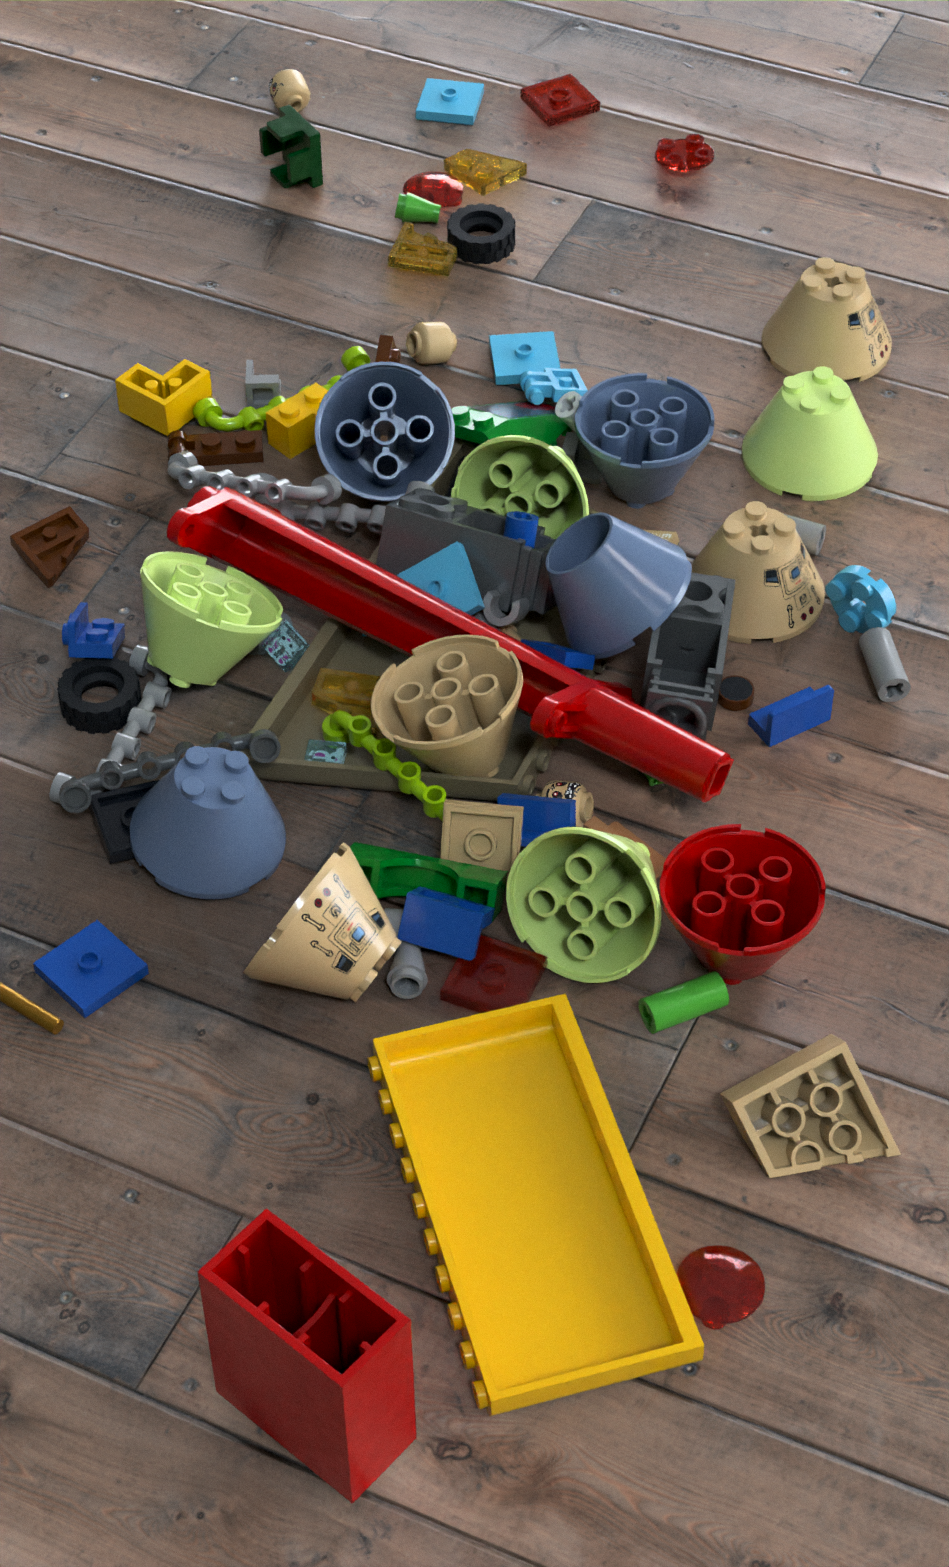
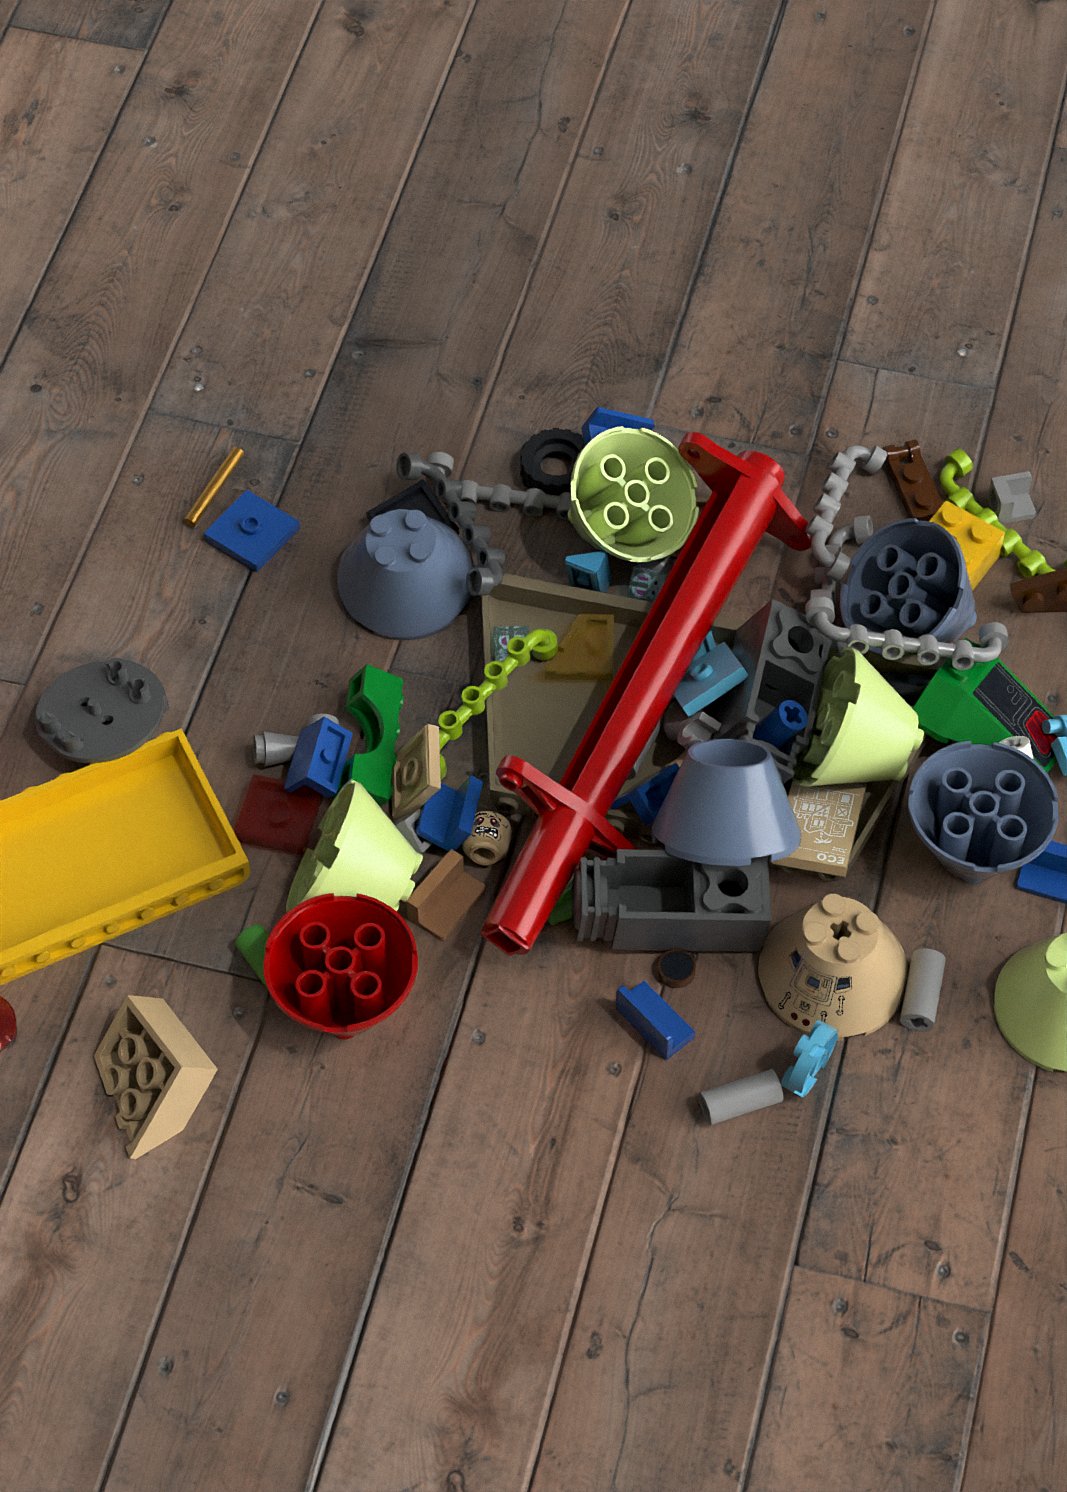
camera: 80 degrees right, 10 degrees up
(51, 544) = (739, 387): reddish brown wing -> none
(163, 400) = (957, 423): yellow brick -> none
(272, 672) = (589, 571): none -> dark azure slope
(308, 1095) = (114, 692): none -> dark grey piece
(329, 935) = (273, 672): tan cone -> none
(451, 704) = (535, 700): tan cone -> none
(456, 441) = (992, 639): none -> light grey bar

